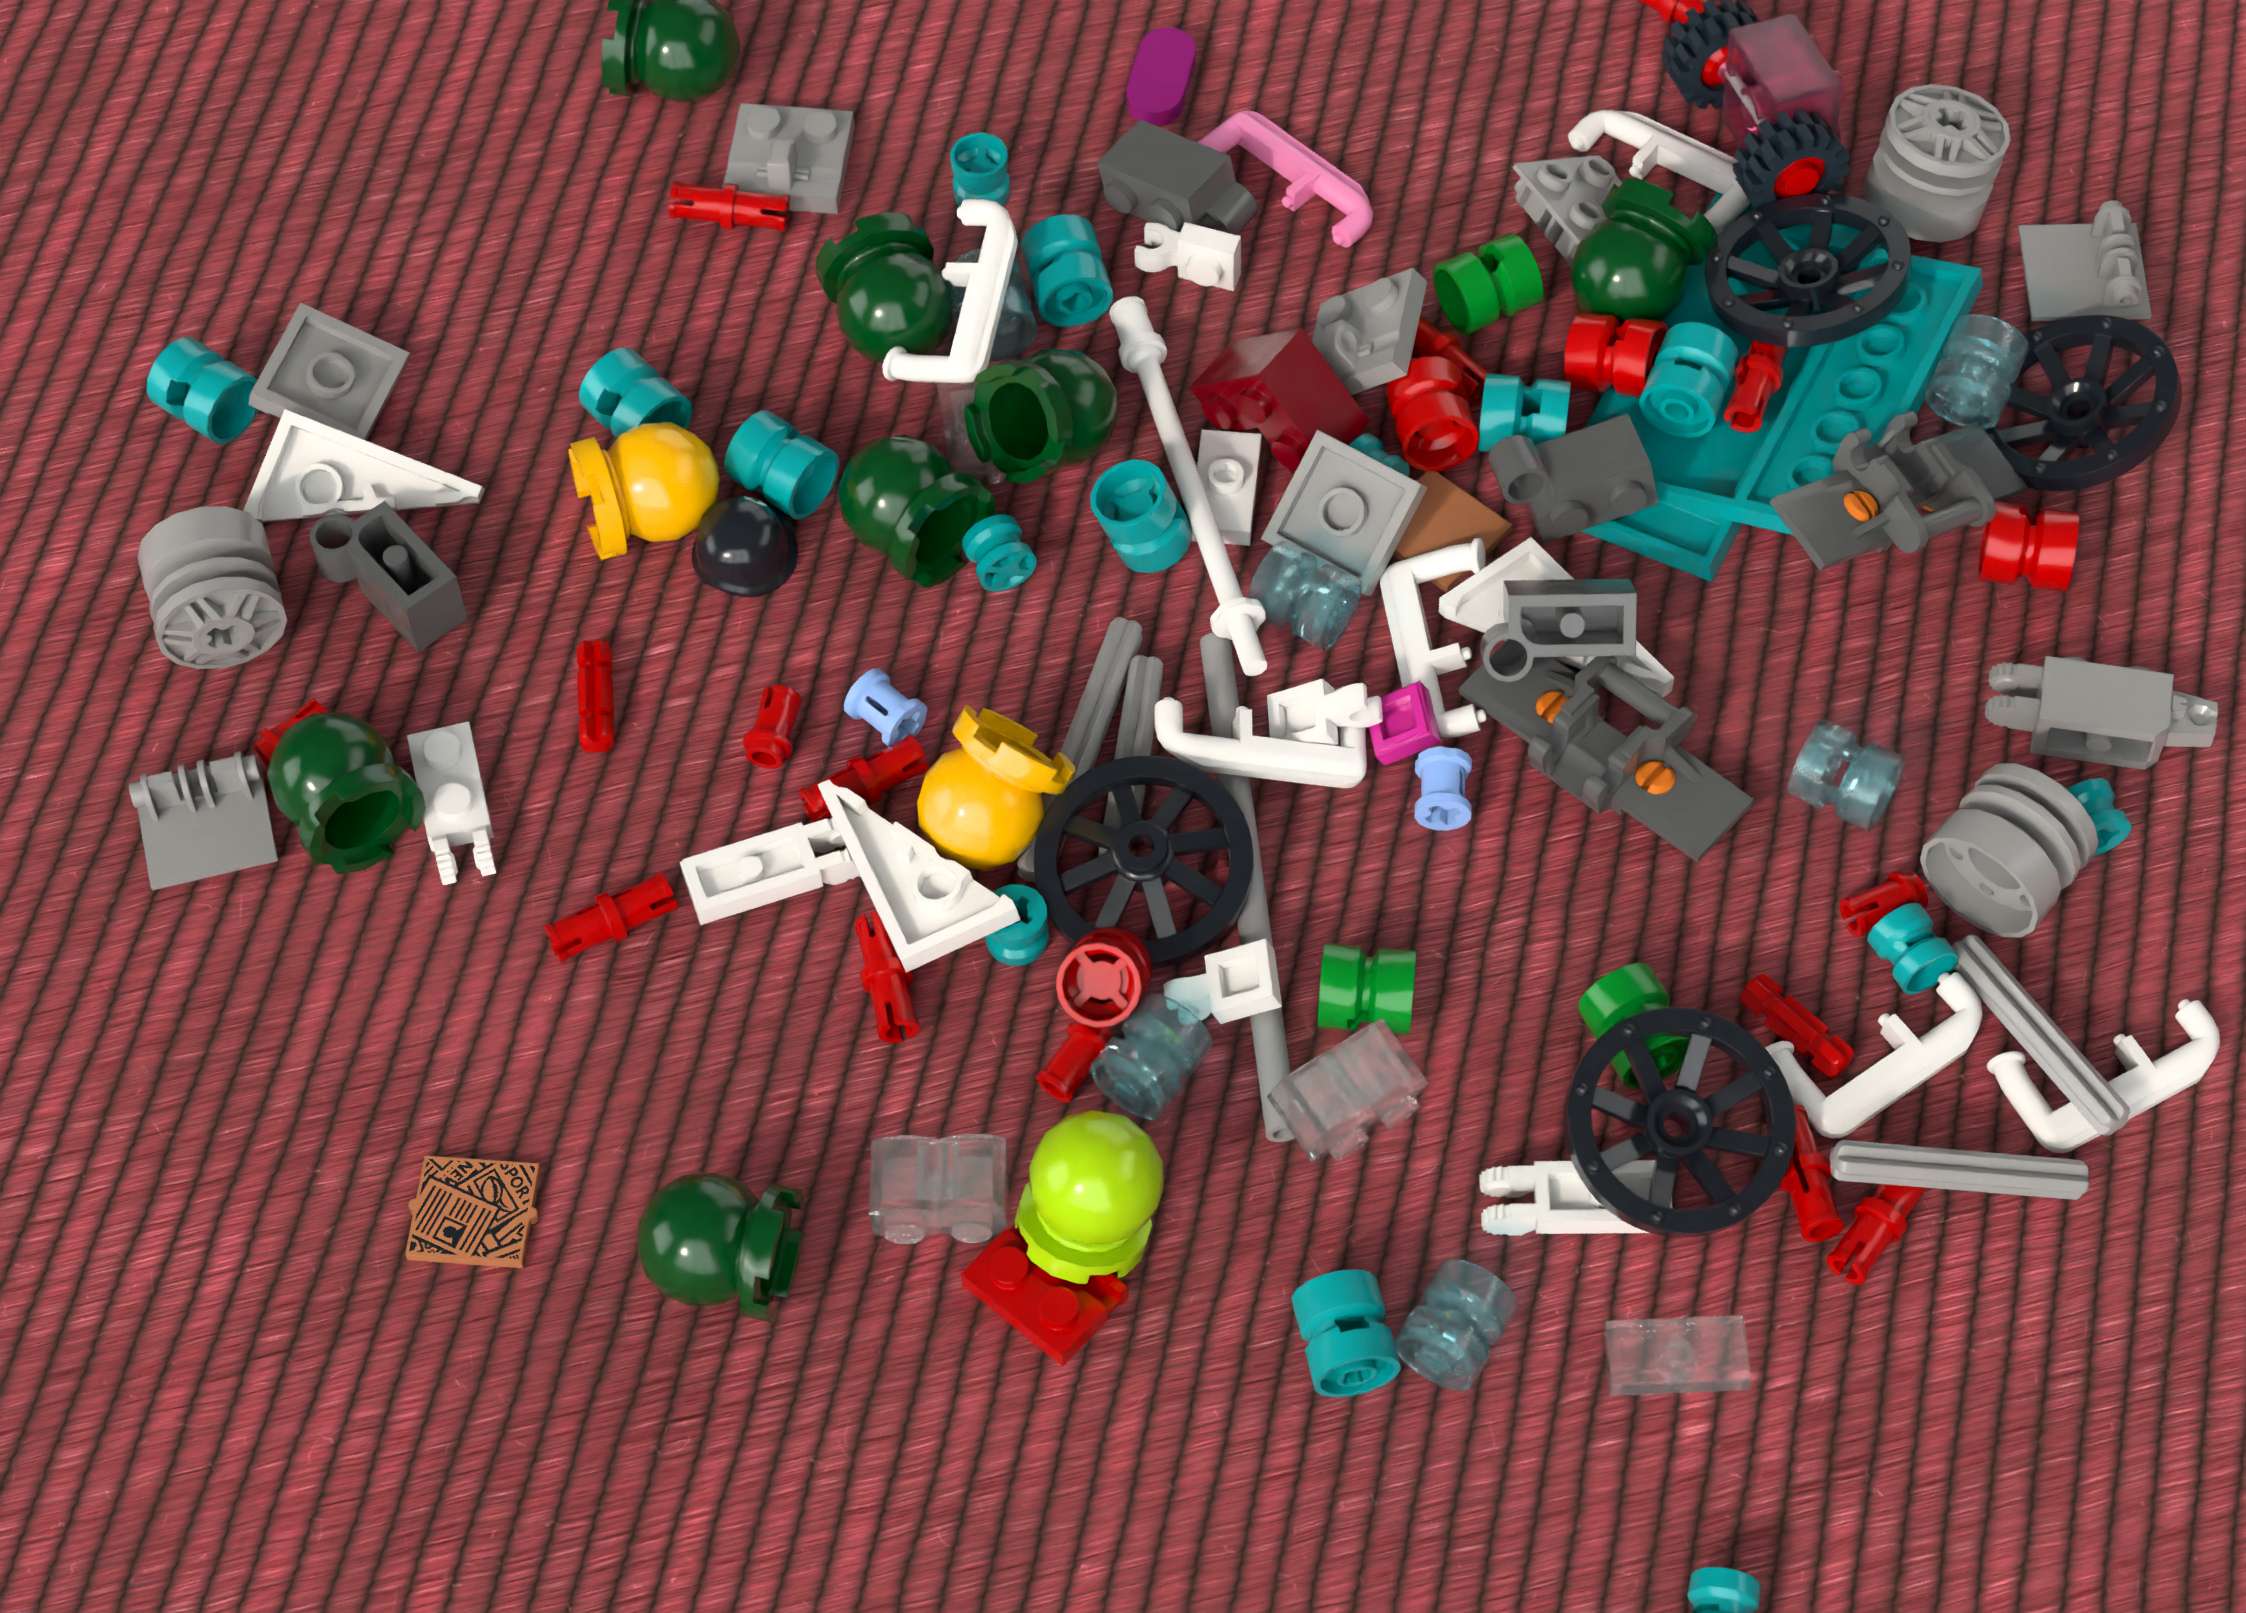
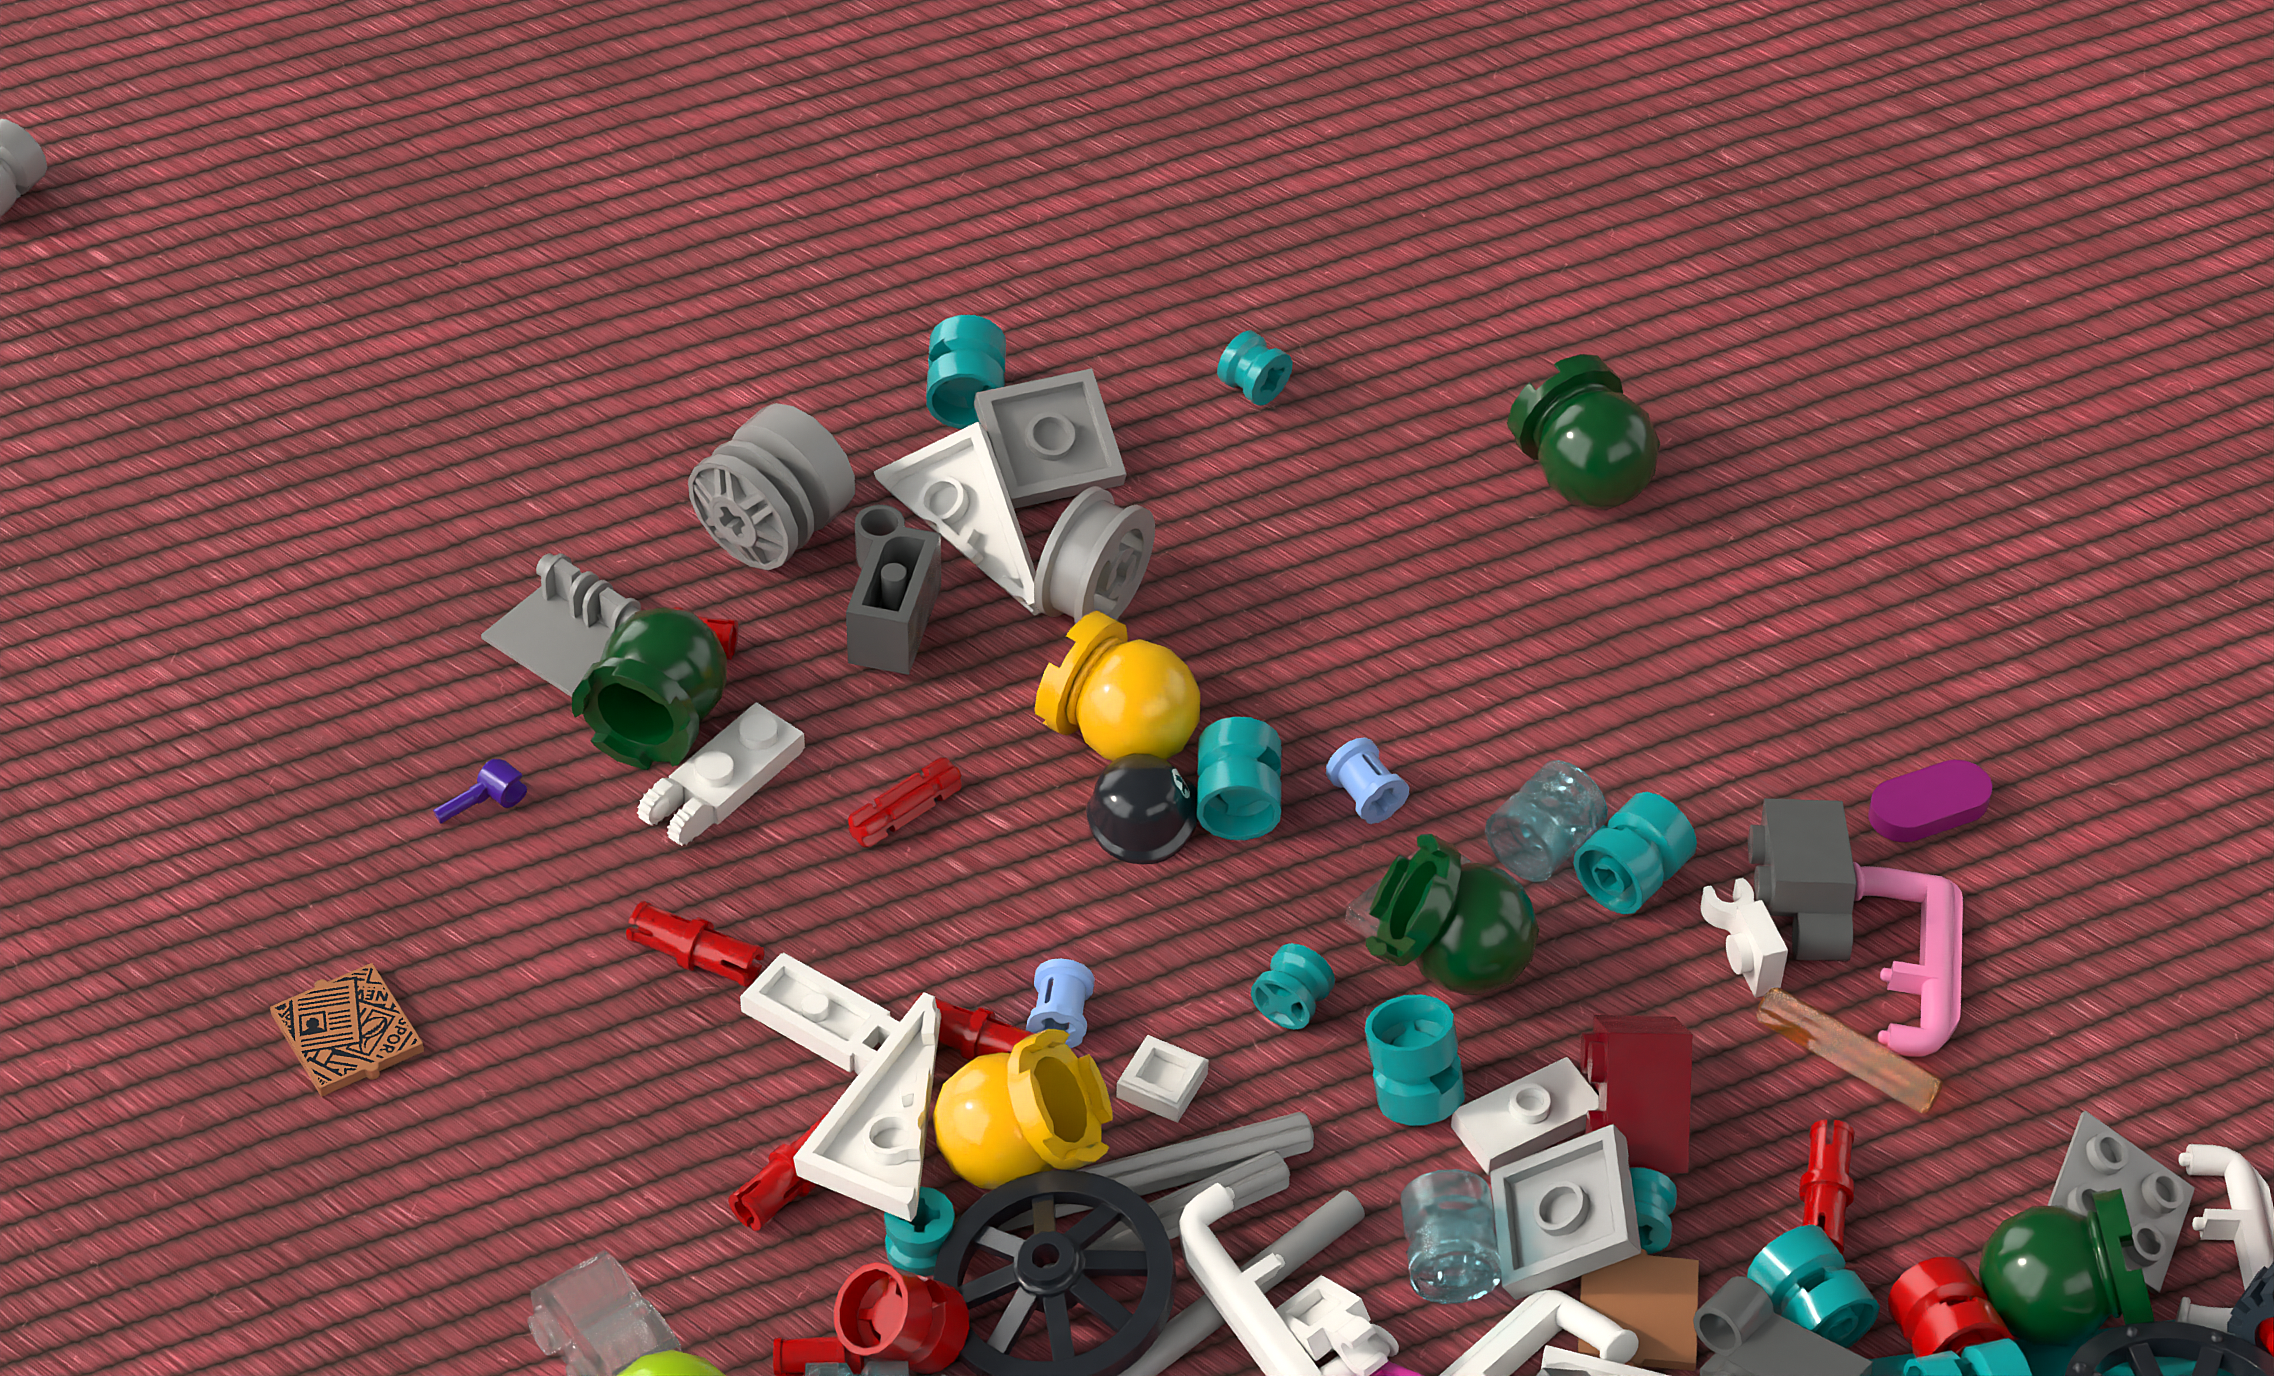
camera: 50 degrees right, 10 degrees down
(321, 960) = (495, 780): none -> dark purple hand
(381, 205) = (1254, 367): none -> teal wheel
(497, 421) = (1094, 557): none -> light grey wheel
(629, 392) = (1213, 638): teal wheel -> none
(717, 1241) = (419, 1206): dark green tile -> none
(729, 206) = (1479, 587): red pin -> none
(773, 727) = (977, 939): red pin -> none
(792, 154) = (1575, 599): light grey hinge -> none
(849, 389) = (1367, 780): none -> light blue bush
(887, 287) = (1481, 736): dark green tile -> none
(912, 506) = (1269, 889): dark green tile -> none
(980, 168) = (1682, 732): teal wheel -> none
(980, 308) = (1514, 797): white piece -> none
(1002, 686) = (1162, 1078): none -> white tile
(1142, 354) = (1608, 964): white bar -> none
(1331, 265) = (1849, 1050): none -> clear orange axle
(1371, 330) = (1776, 1111): light grey hinge -> none
(1432, 415) = (1740, 1215): red wheel -> none
(1496, 281) = (1935, 1176): green wheel -> none

